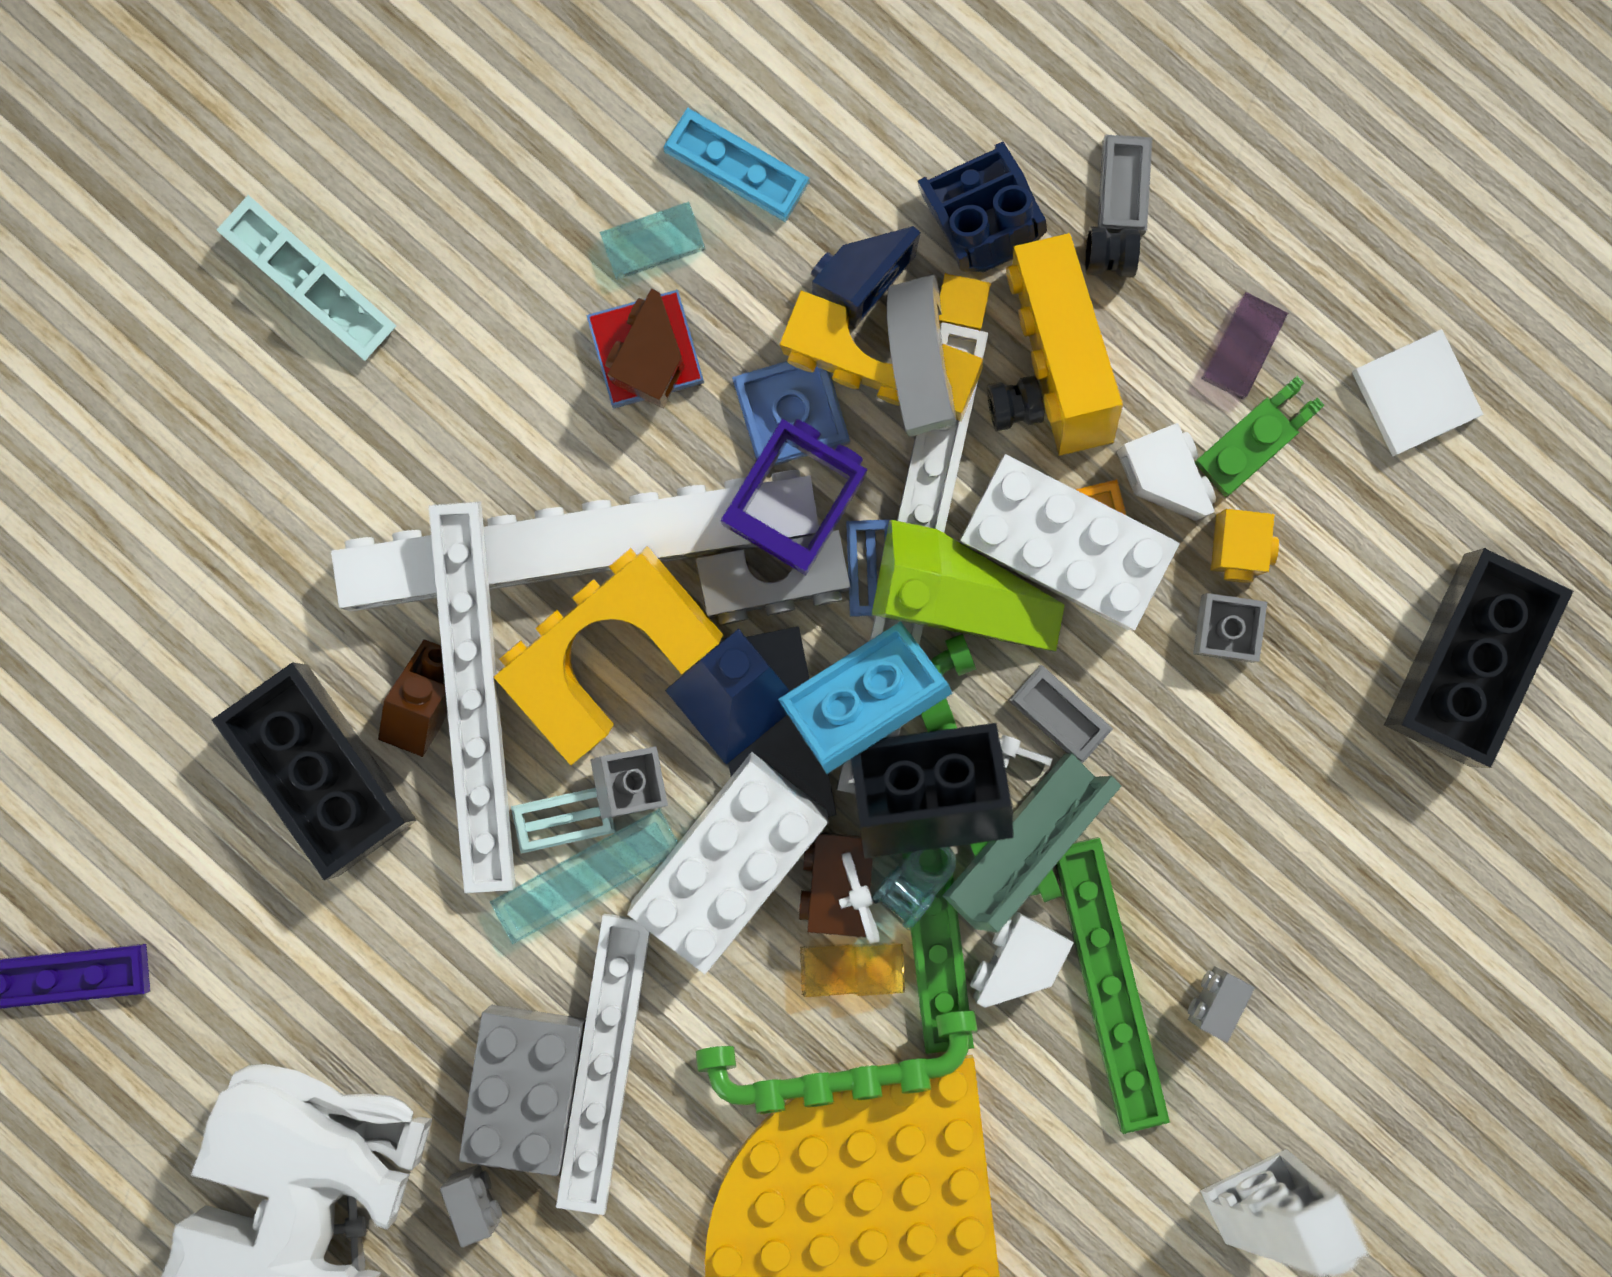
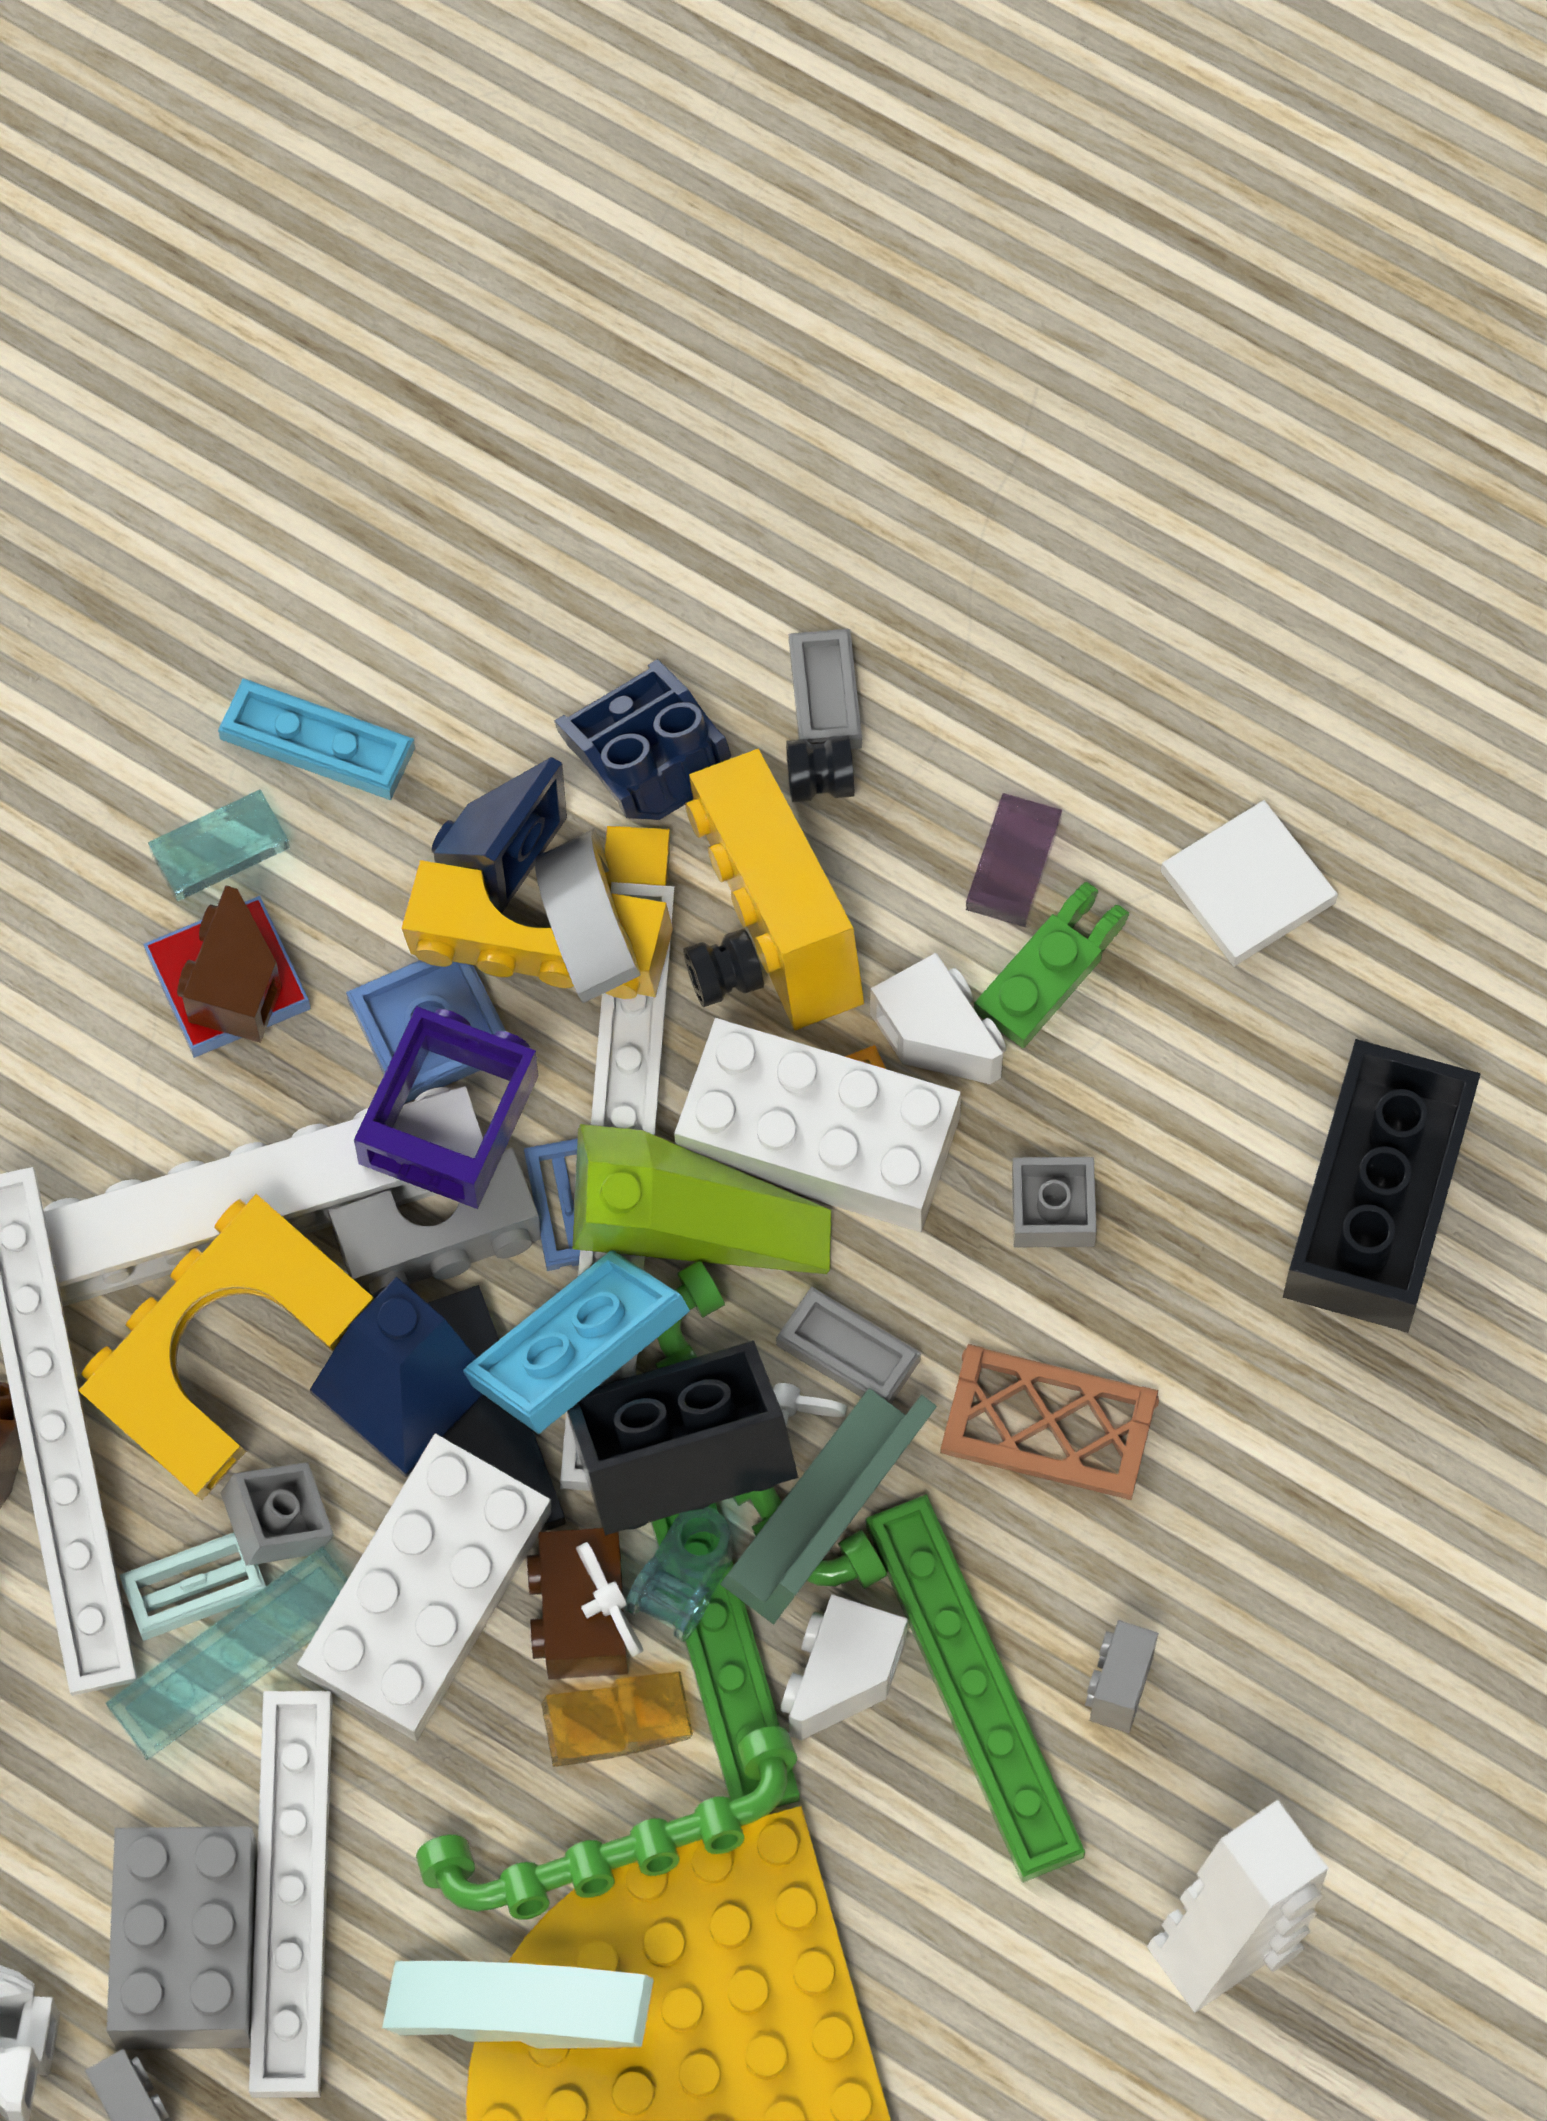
camera: 10 degrees left, 20 degrees down
(754, 1186) = (519, 2003): none -> light aqua slope
(1206, 831) = (1065, 1471): none -> nougat window
(1243, 544) = (1053, 1095): yellow brick -> none

